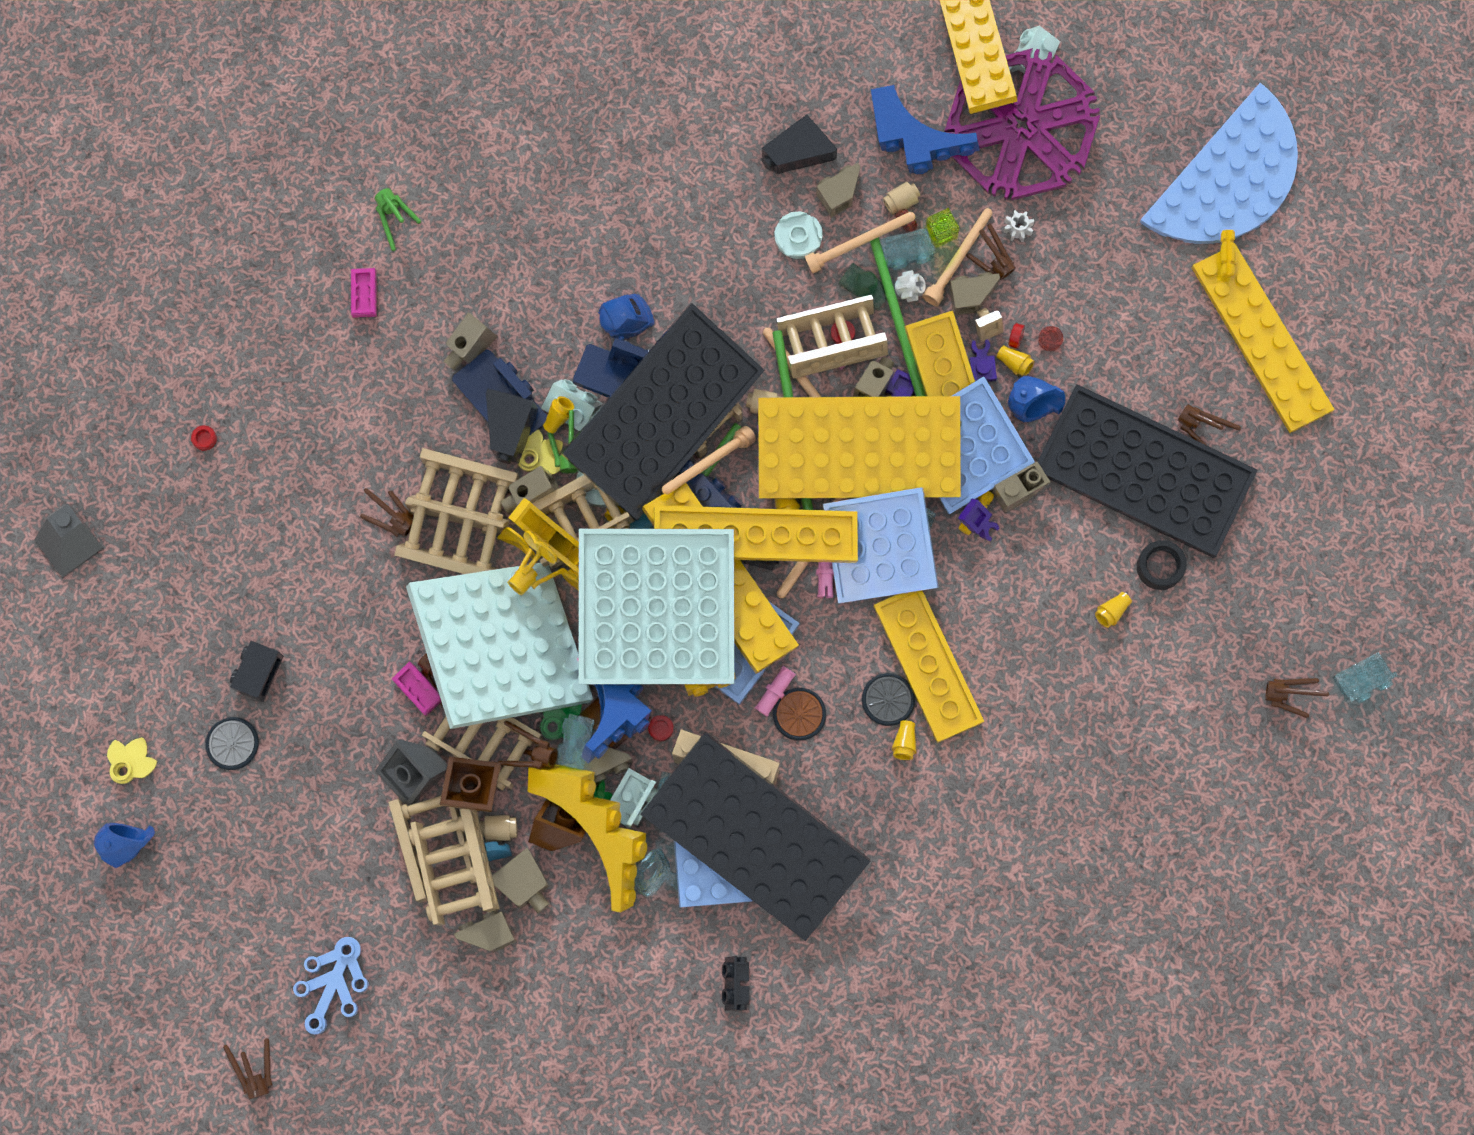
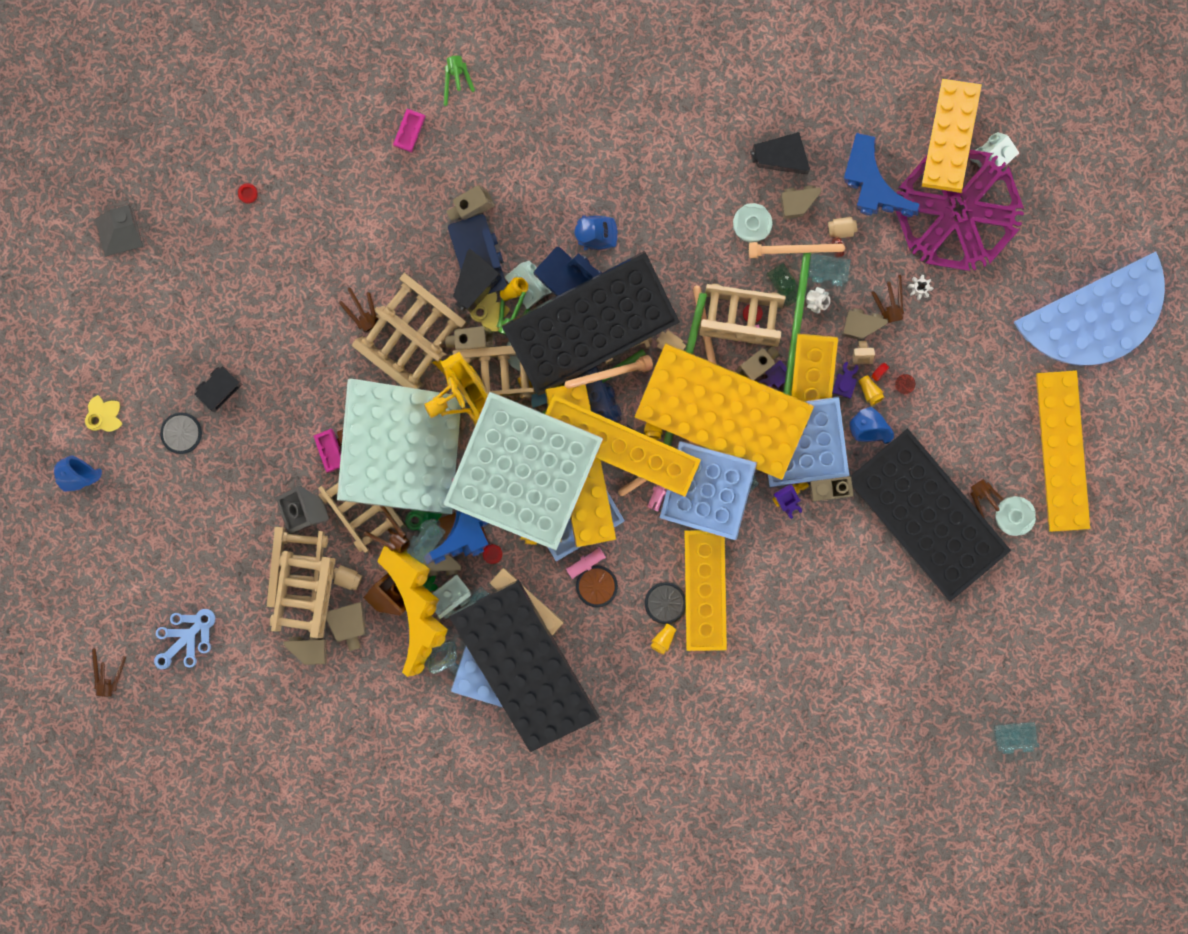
camera: 25 degrees right, 10 degrees up
(470, 784) = (336, 542): reddish brown slope -> none
(497, 851) = (336, 593): dark azure tile -> none
(735, 970) = (470, 751): black hinge -> none
(934, 294) = (833, 313): light nougat piece -> none
(942, 227) = (862, 264): clear neon green brick -> none
(1112, 610) = (857, 608): yellow cone -> none
(1169, 547) = (922, 590): black tyre -> none
(1227, 253) = (1066, 377): yellow axle -> none
(1244, 430) = (1015, 516): none -> light aqua tile
(1278, 690) = (948, 719): reddish brown plant -> none

